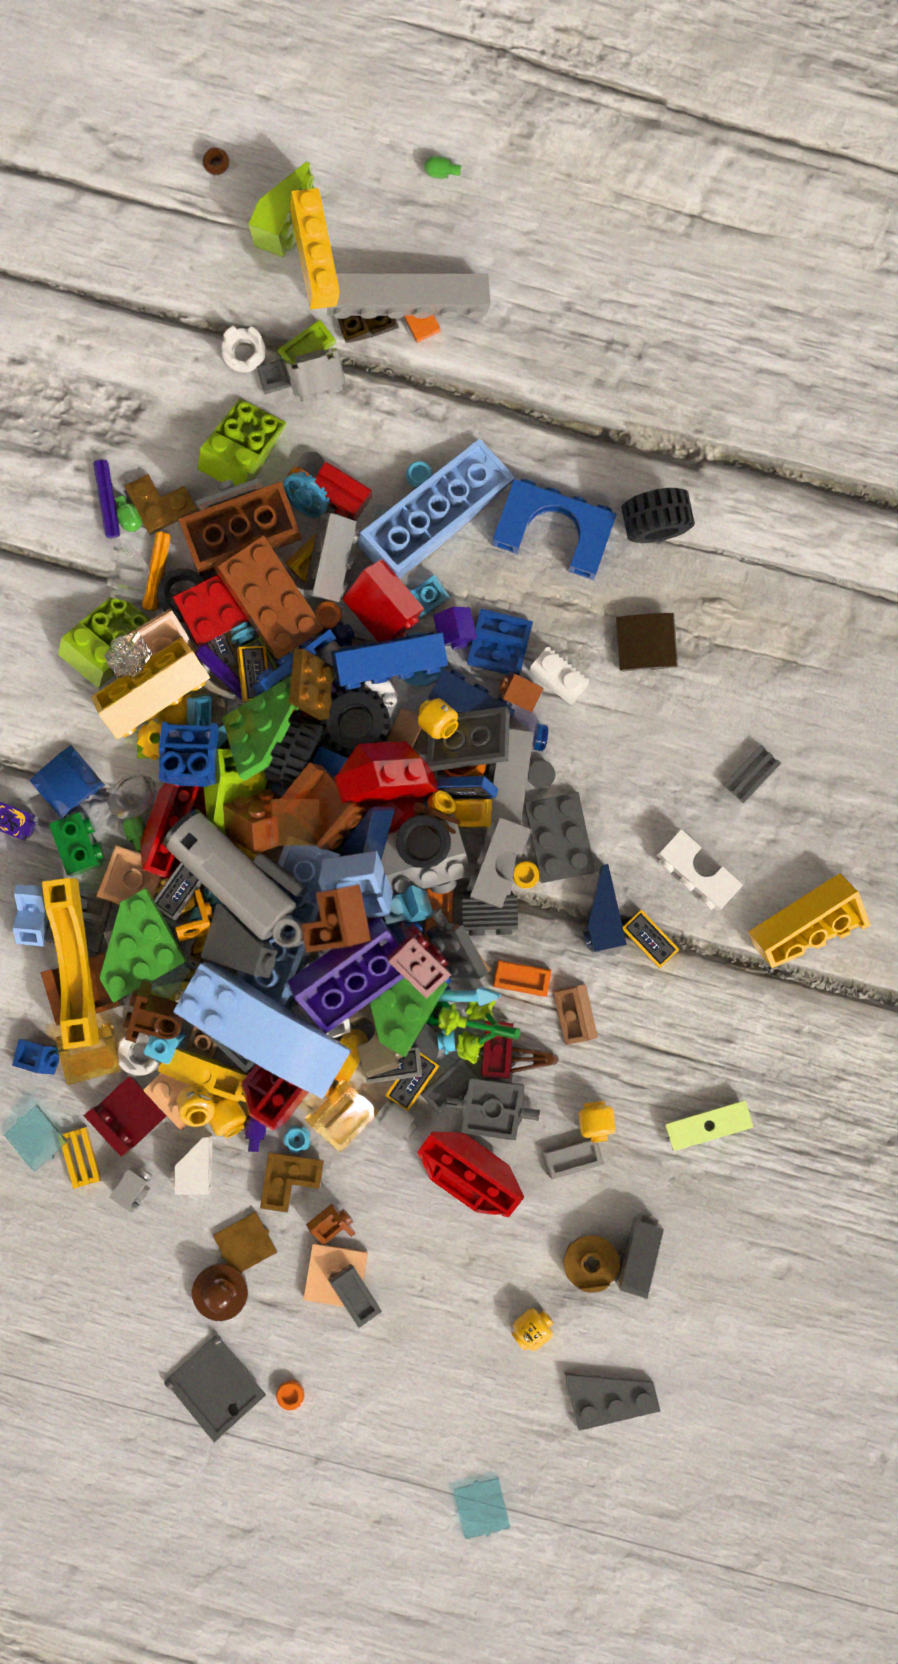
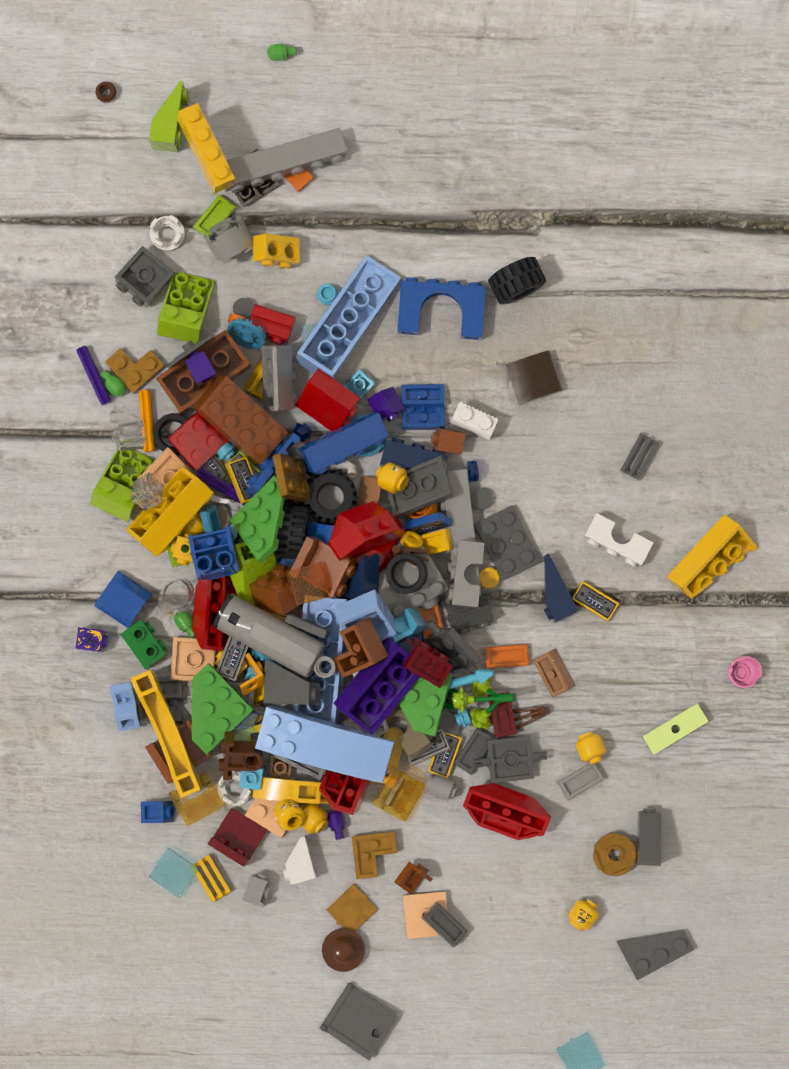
camera: 15 degrees left, 0 degrees up
(199, 394) = (143, 277): none -> dark grey plate
(235, 519) = (200, 367): none -> dark purple brick
(273, 376) = (195, 247): dark grey tile -> none
(289, 1138) = (370, 827): medium azure plate -> none
(290, 1395) = (416, 1012): orange tile -> none
(328, 614) = (287, 419): orange tile -> none
(377, 403) = (276, 250): none -> yellow brick
(815, 1076) = (744, 671): none -> bright pink hair

